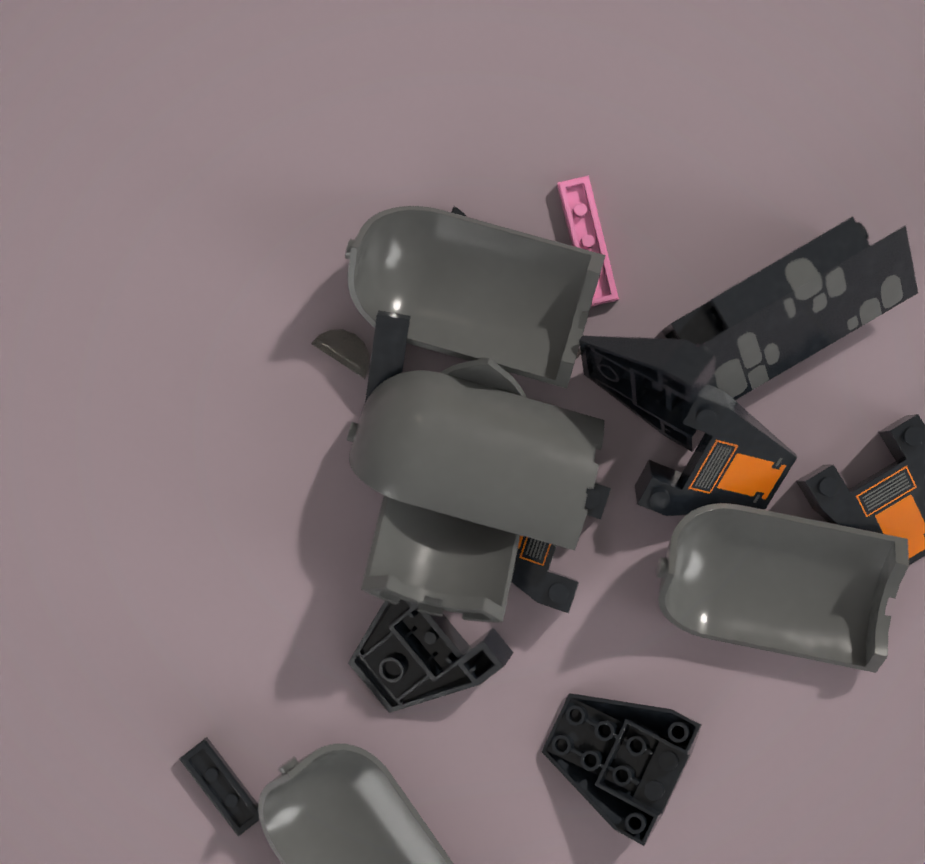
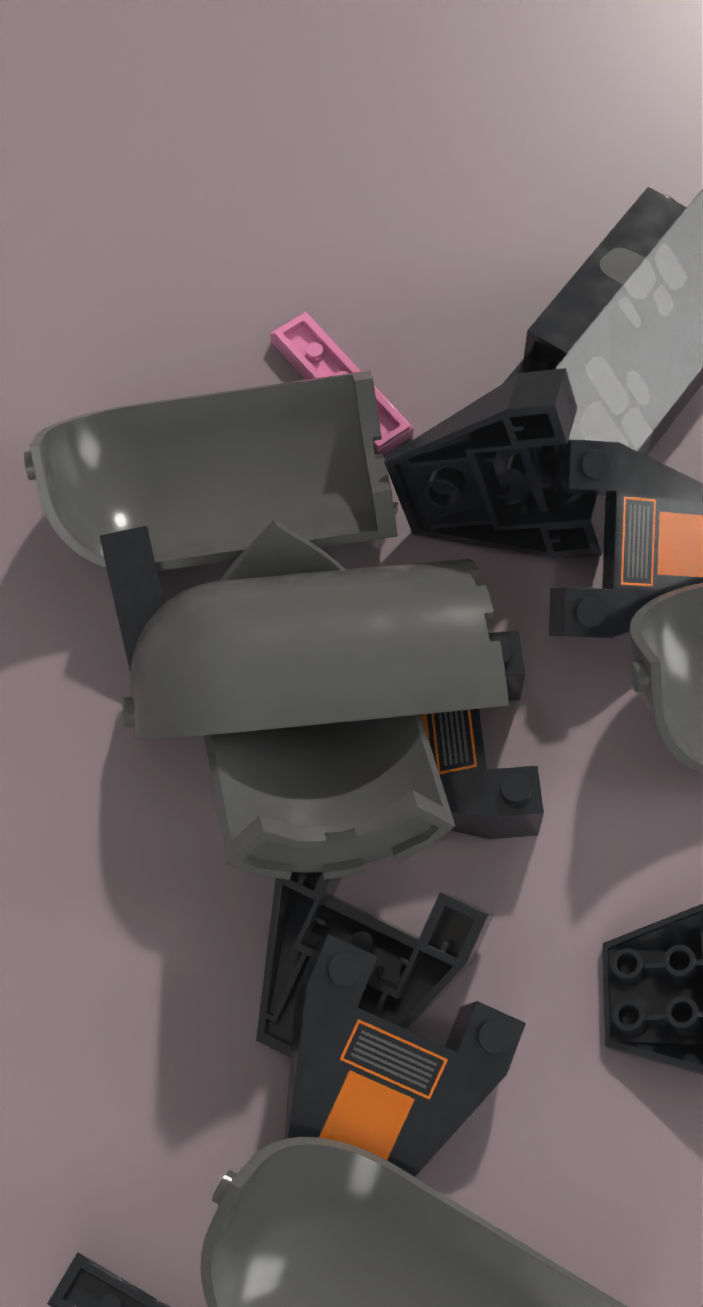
camera: 25 degrees left, 25 degrees down
(346, 349) = (74, 623): clear smoke tile -> none
(401, 727) = (377, 1081): none -> black wedge

